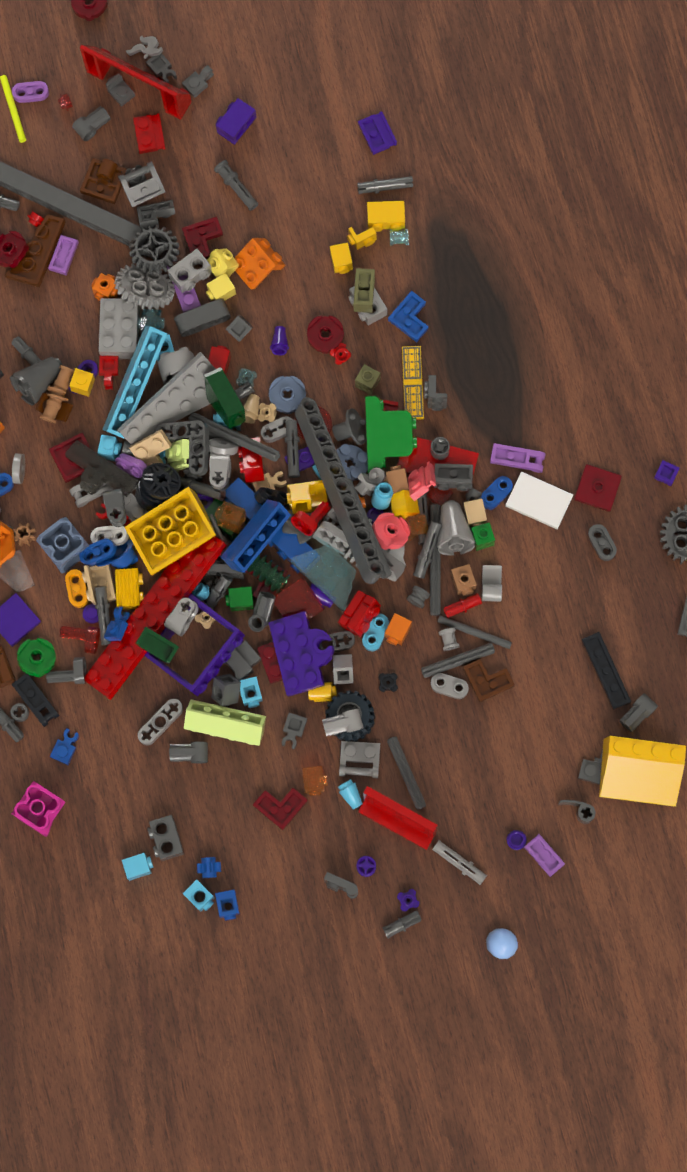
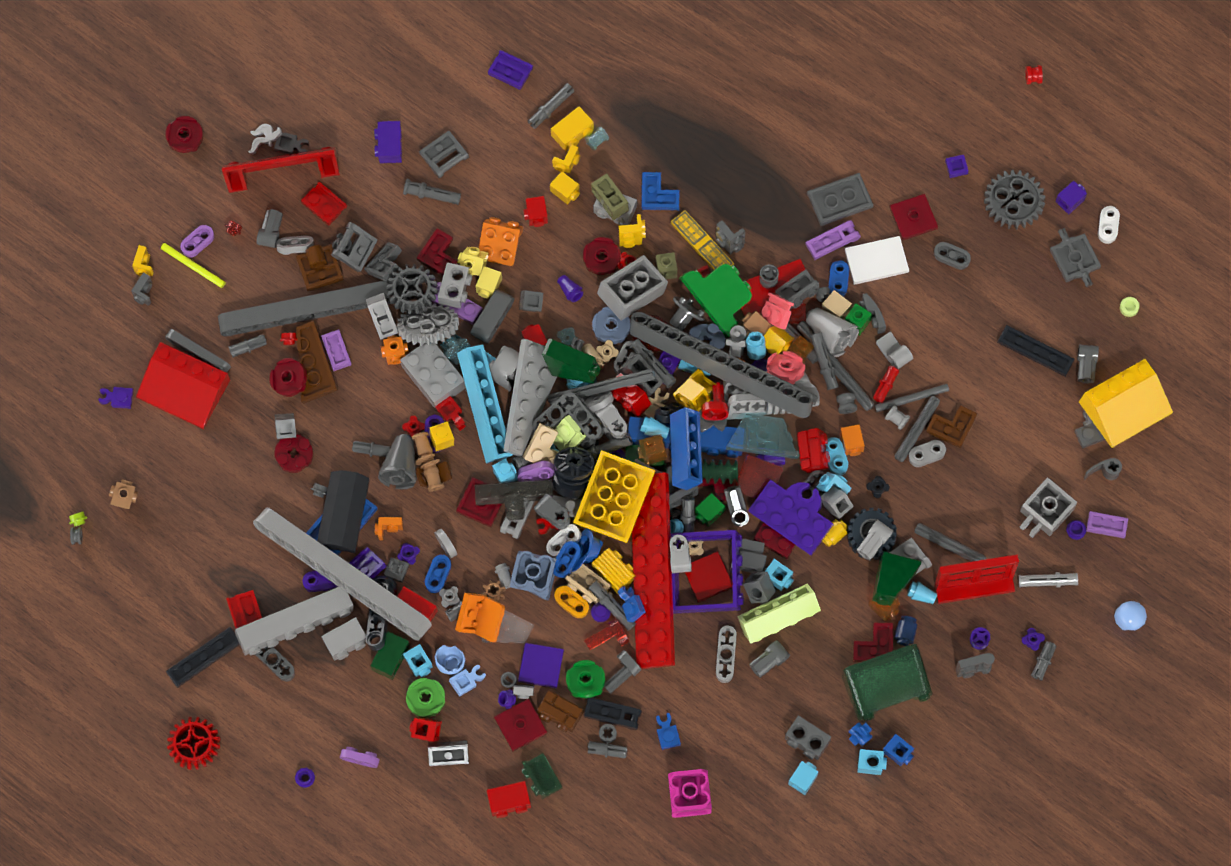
camera: 40 degrees left, 5 degrees down
(44, 524) = (504, 575): none -> light grey pin
(74, 354) = (413, 431): none -> red plate
(99, 148) = (294, 244): none -> light grey plate
(115, 253) = (382, 316): none -> light grey brick
(119, 89) = (270, 186): dark grey bracket -> none
(157, 645) = (680, 591): dark green panel -> none
(196, 649) = (708, 577): none -> red tile
(197, 83) = (329, 136): dark grey plate -> none
(247, 500) = (653, 427): none -> medium azure cone
(263, 843) = (886, 681): none -> clear green windscreen
(271, 157) = (439, 150): none -> dark grey plate
(278, 442) = (638, 364): none -> dark grey brick
(294, 727) = (835, 577): dark grey plate -> none
(303, 260) = (536, 211): none -> red brick
(313, 814) = (906, 630): none -> dark blue brick
(324, 376) = (632, 287): none -> light grey brick
(334, 764) = (893, 576): none -> dark green slope
(352, 647) = (831, 479): none -> medium azure bracket
(361, 335) = (632, 234): none -> yellow bracket
(463, 580) = (870, 364): medium nougat brick -> none
(500, 536) = (876, 318): none -> dark grey slope
(500, 815) = (1047, 519): none -> light grey hinge
(551, 429) = (840, 199): none -> dark grey tile

